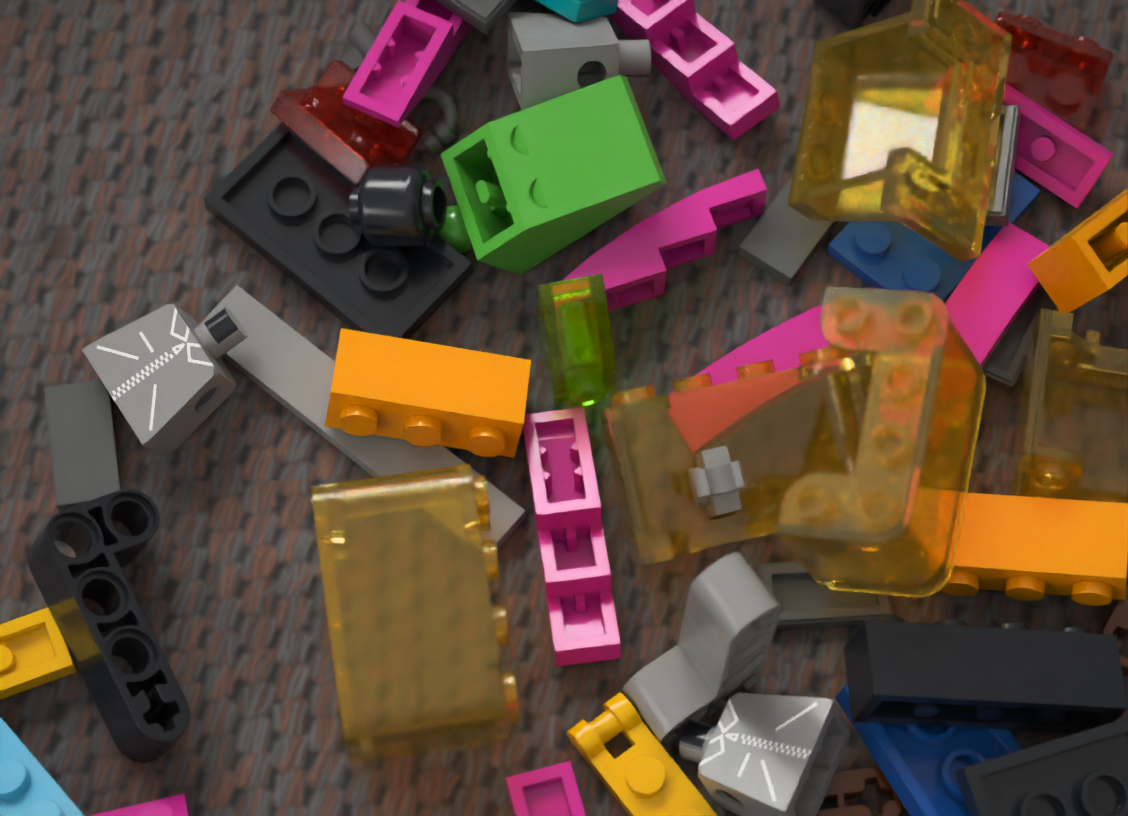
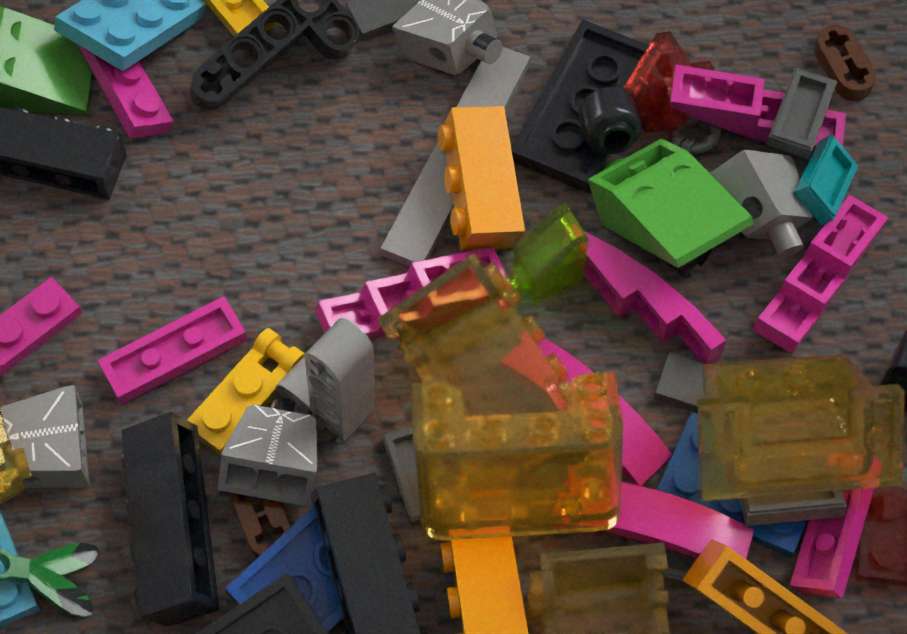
camera: 75 degrees right, 5 degrees down
(413, 613) = (312, 193): clear yellow windscreen -> none
(717, 482) = (465, 363): light grey plate -> none

